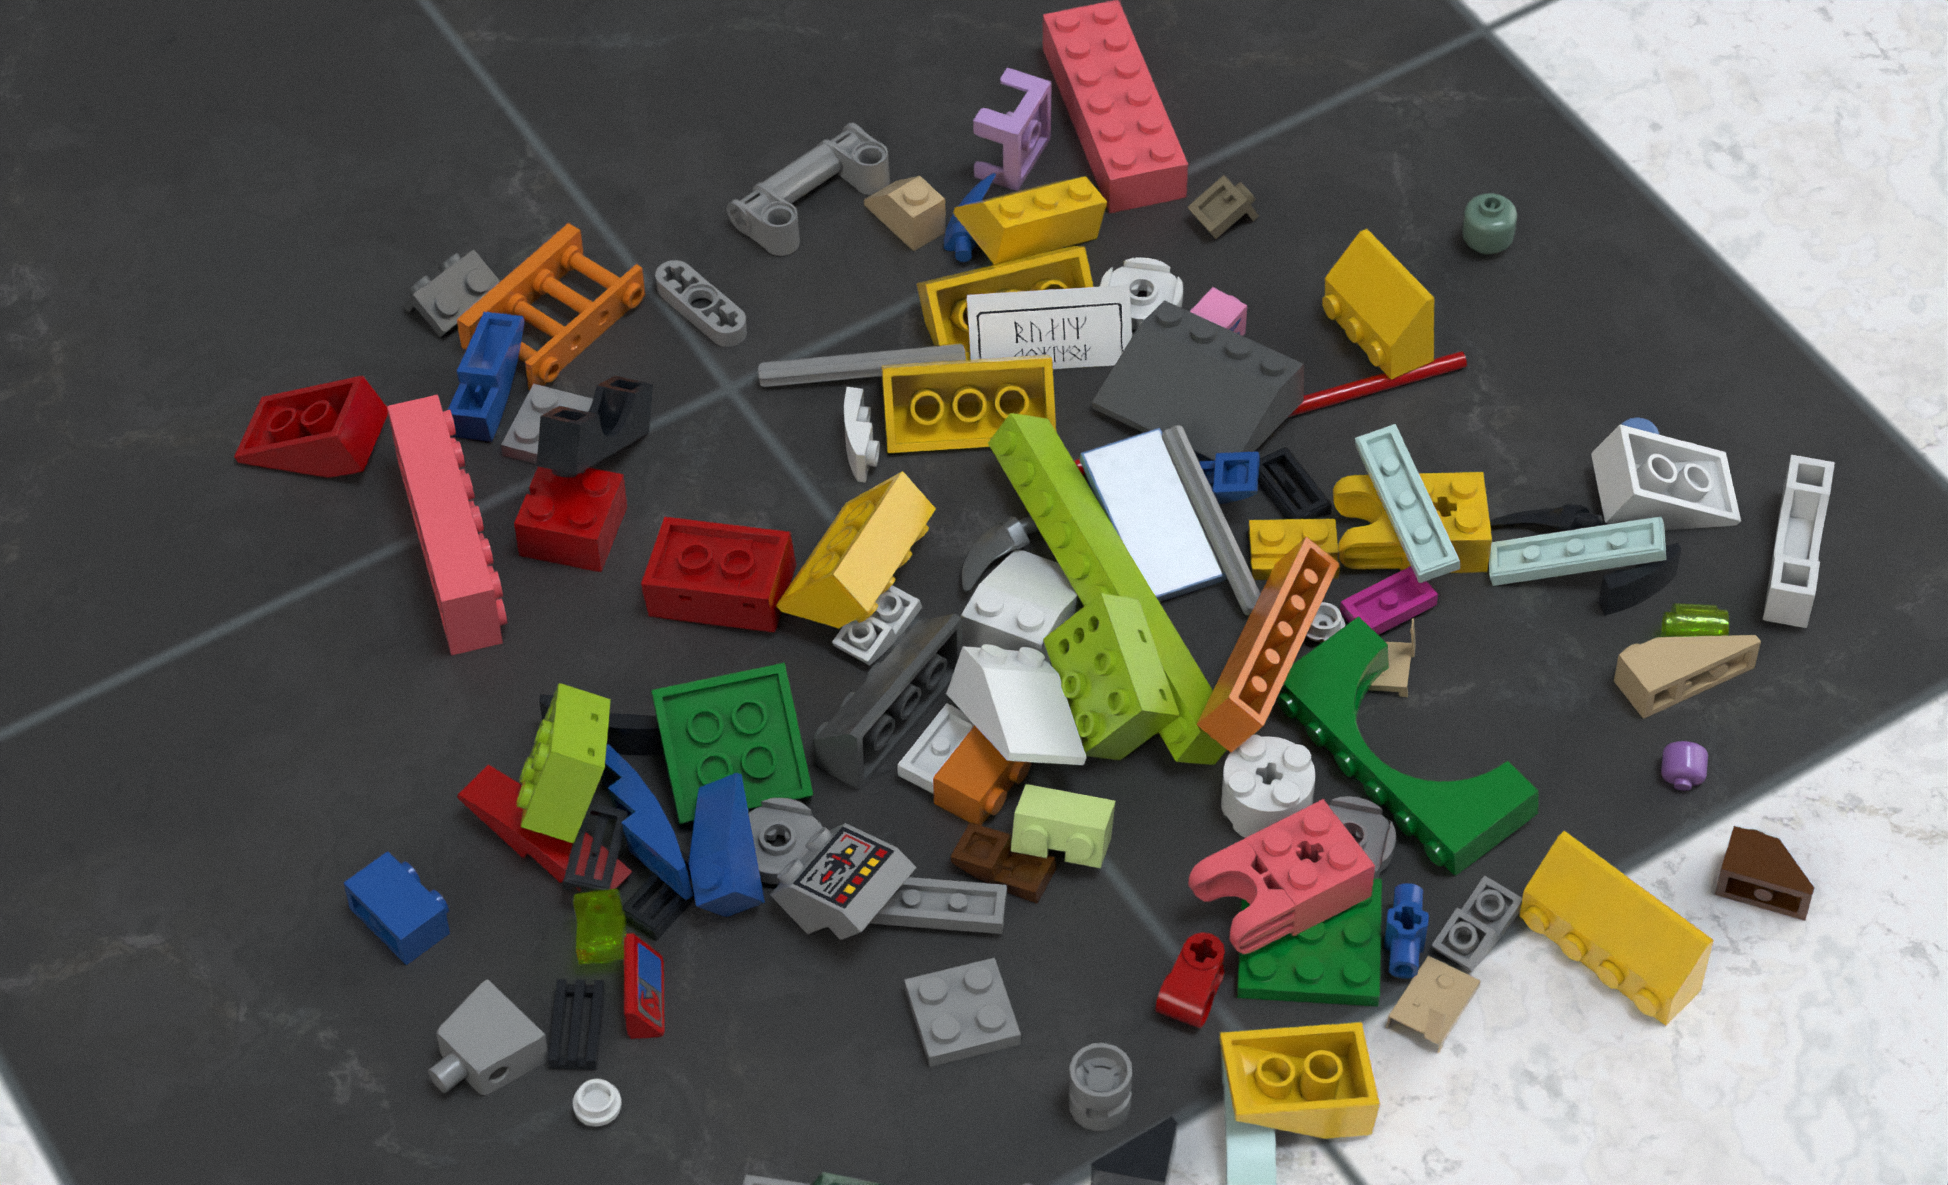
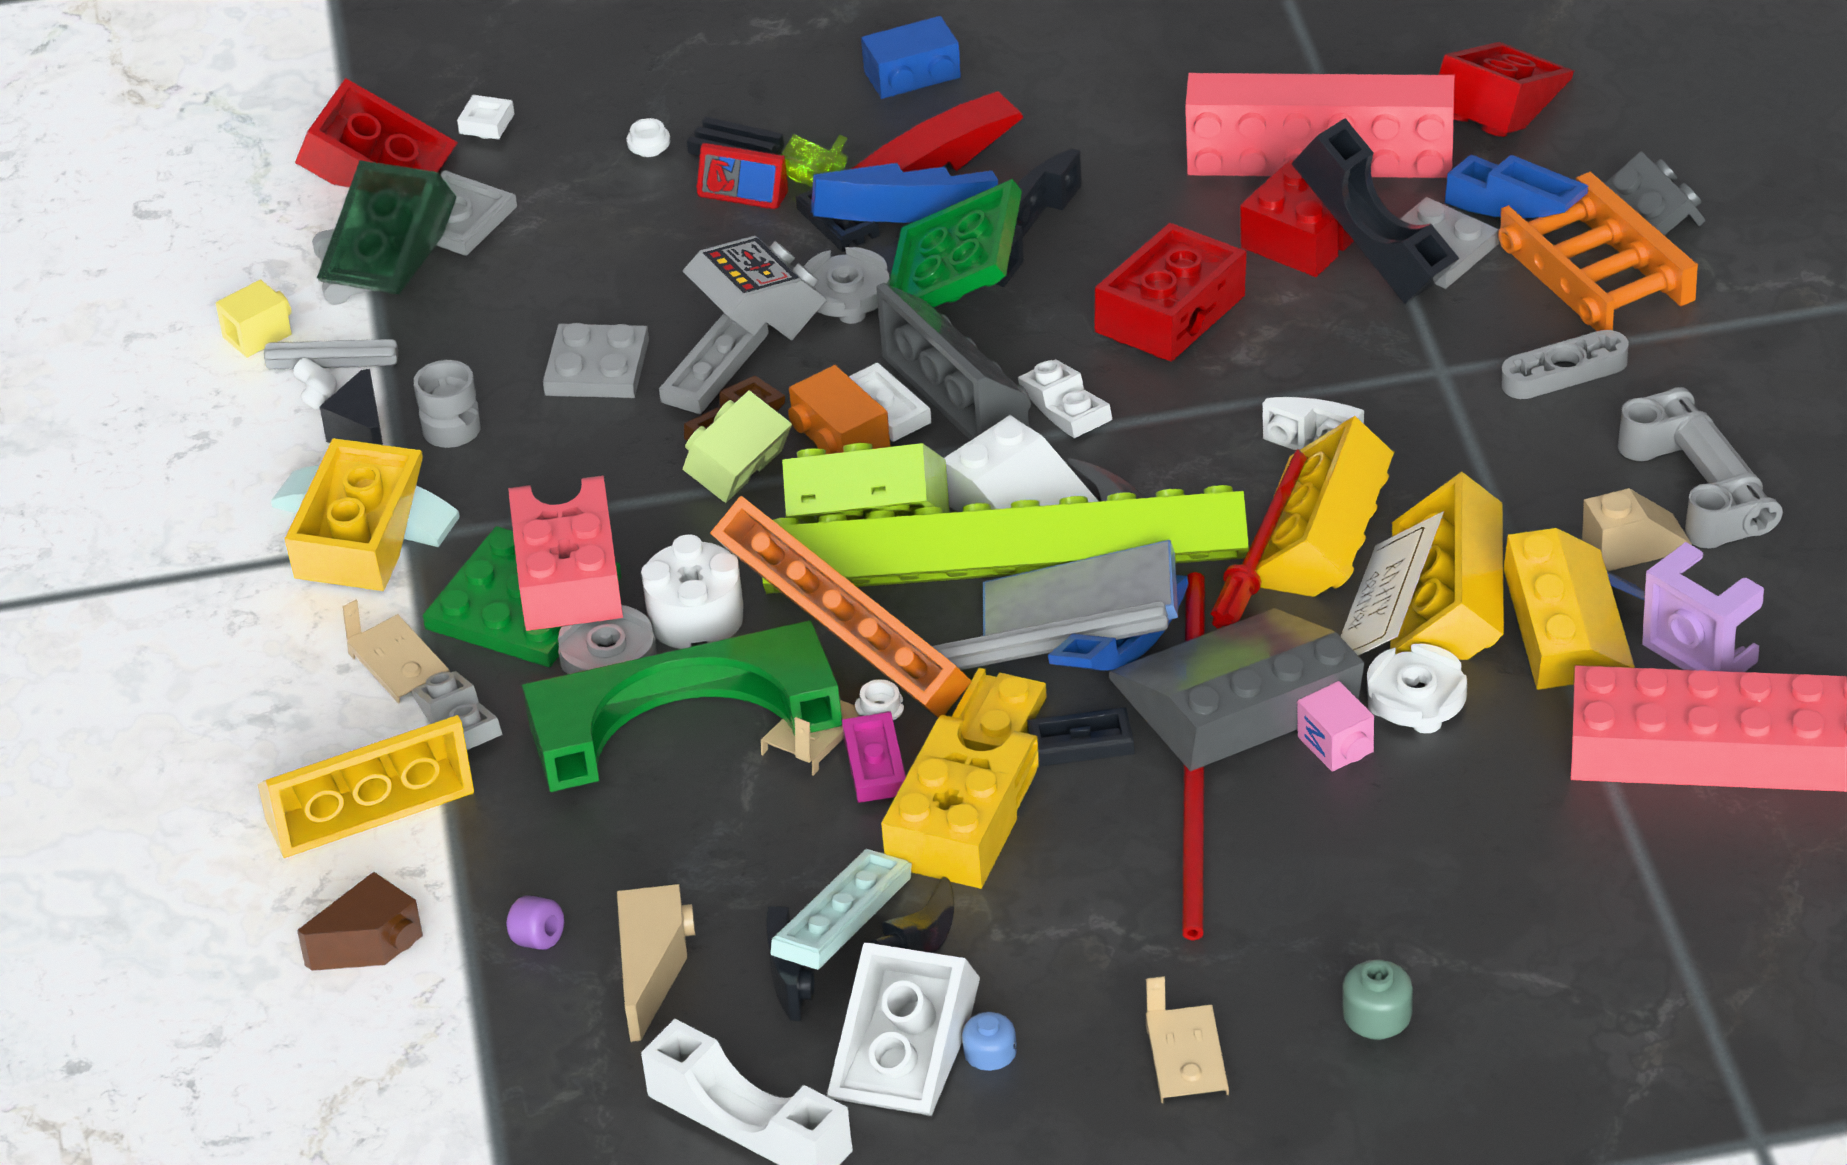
camera: 115 degrees right, 10 degrees down
(487, 1043) = (745, 84): light grey torso -> none
(565, 763) = (968, 123): lime piece -> none
(587, 882) = (890, 148): black tile -> none
(723, 850) = (829, 223): blue slope -> none
(850, 365) = (1411, 454): light grey axle -> none
(859, 554) = (1132, 376): yellow slope -> none
(1017, 704) = (866, 407): white slope -> none
(1080, 426) = (1242, 580): none -> red piece
(1193, 981) = (493, 487): red piece -> none
(1223, 206) = (1524, 791): dark tan bracket -> none
(1381, 306) = (1271, 851): yellow slope -> none
(1406, 930) = (476, 648): blue axle -> none
(1407, 503) = (957, 755): light aqua tile -> none
(1582, 328) = (1183, 1046): none -> tan piece
(1695, 620) = (696, 987): clear neon green brick -> none

